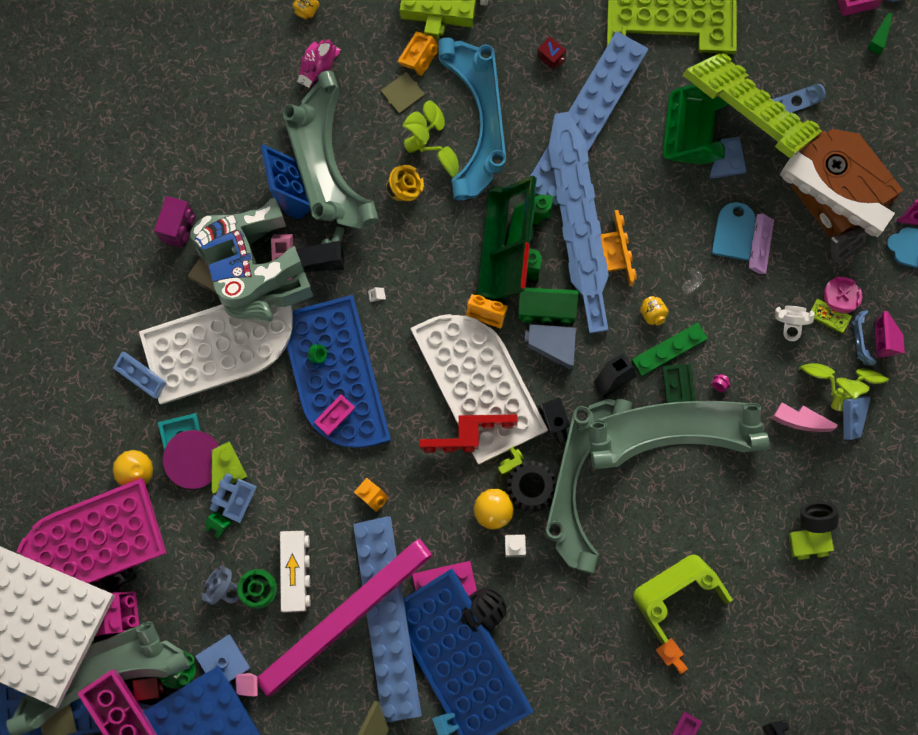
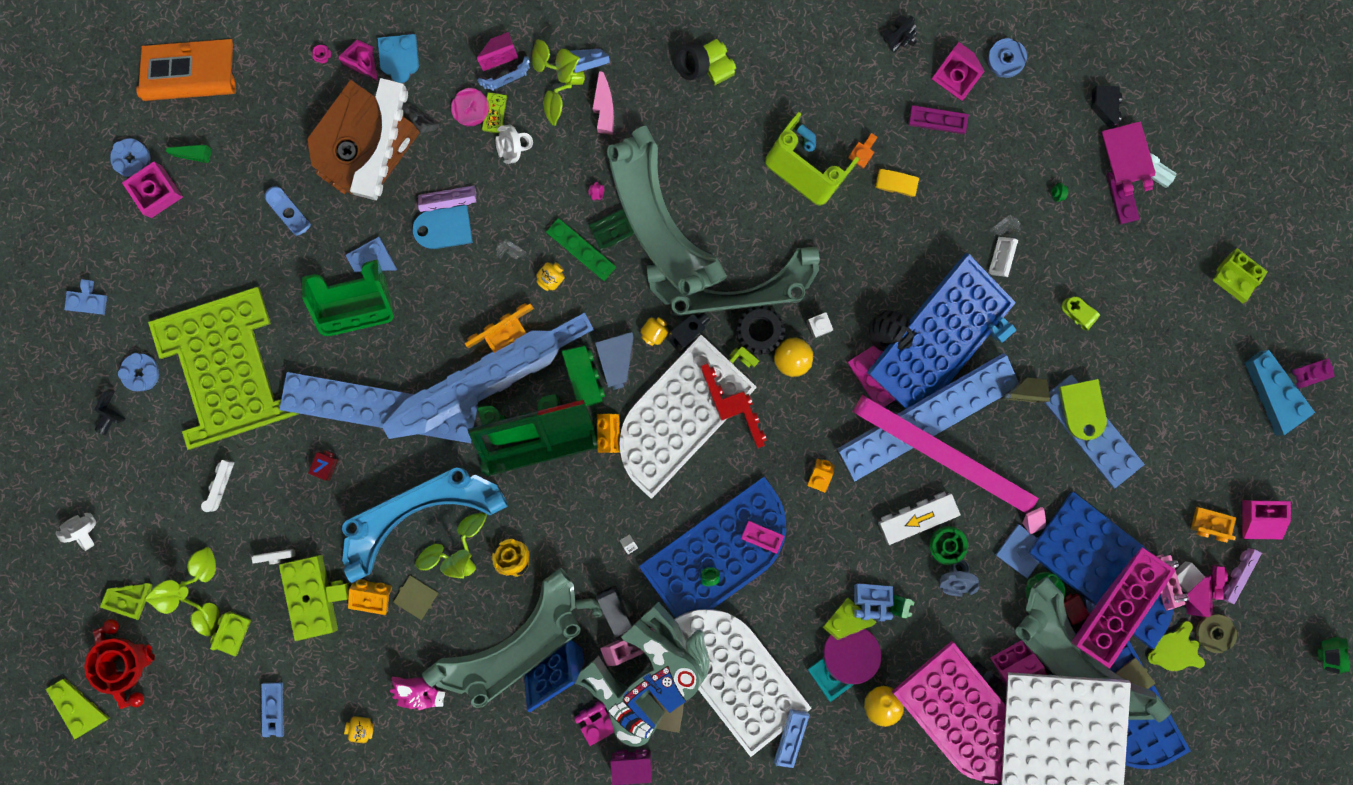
camera: 110 degrees left, 10 degrees up
(221, 203) = (596, 729): none -> dark pink plate
(567, 388) = (654, 331): none -> yellow head
(615, 375) = (627, 291): black slope -> none
(629, 677) = (897, 182): none -> yellow slope
(704, 607) = (809, 138): none -> dark azure arm
(729, 81) = (301, 284): lime piece -> none

